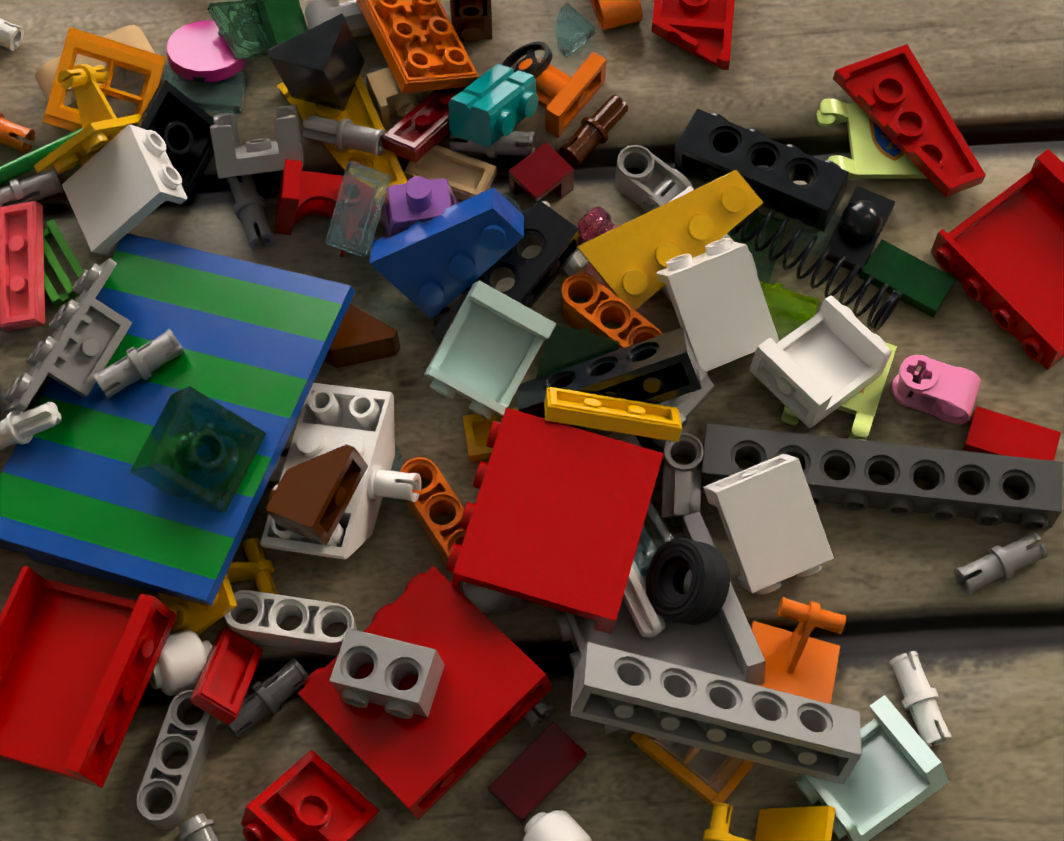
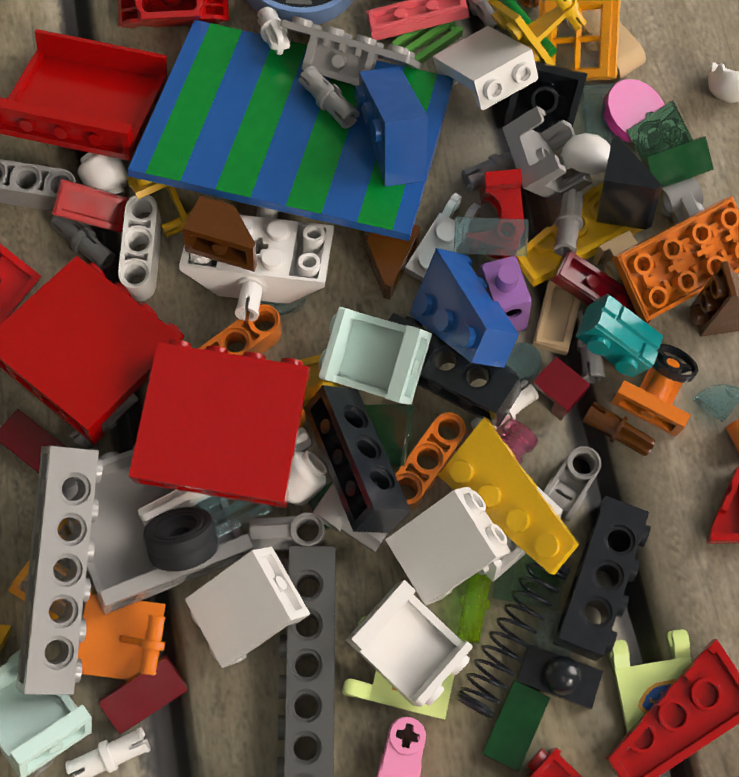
camera: 80 degrees right, 5 degrees up
(197, 286) = (394, 124): none -> blue wedge
(198, 450) = (247, 143): clear green slope -> none
(259, 104) = (585, 153): none -> white hair
(329, 265) = (438, 236): none -> white hinge
(391, 663) = (89, 309): light grey brick -> none
(612, 414) = (318, 458): yellow tile -> none
(857, 658) = (142, 695): none -> dark red tile

